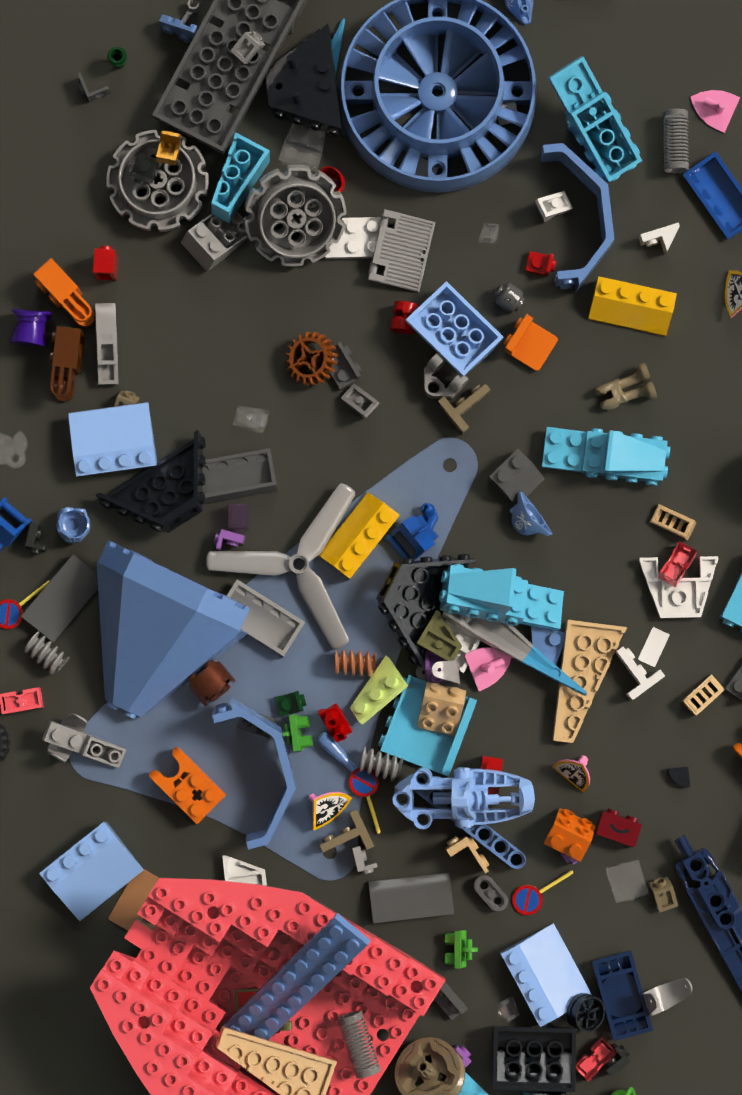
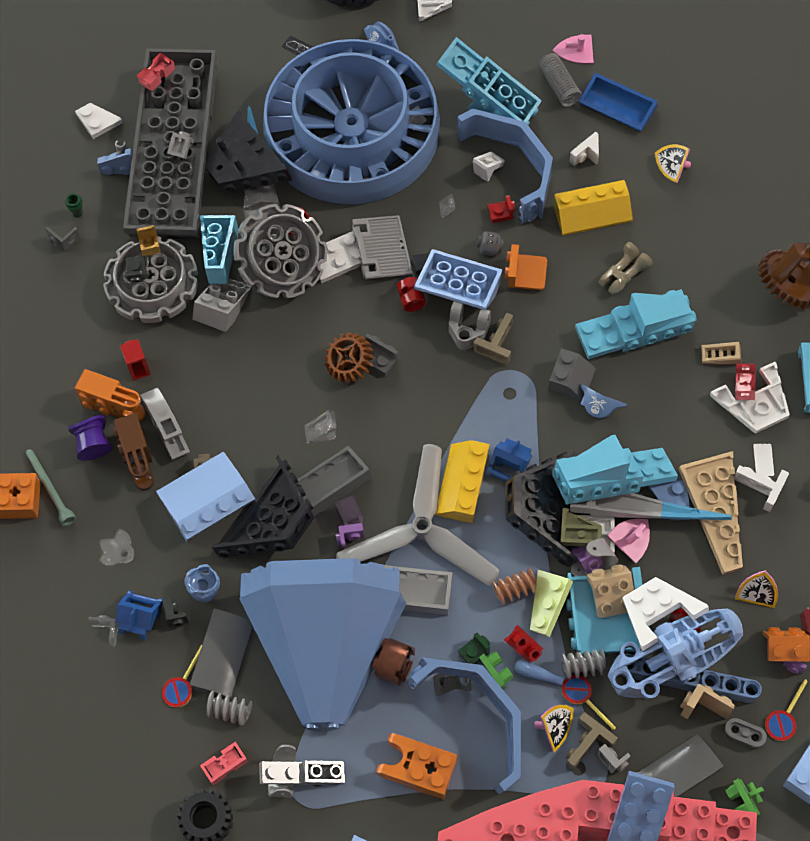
camera: 20 degrees left, 20 degrees down
(360, 401) = (408, 373): light grey slope -> none
(430, 514) = (513, 435): blue arm -> none
(433, 283) = (419, 261): none -> black tile
(468, 742) = (654, 602): none -> white wing

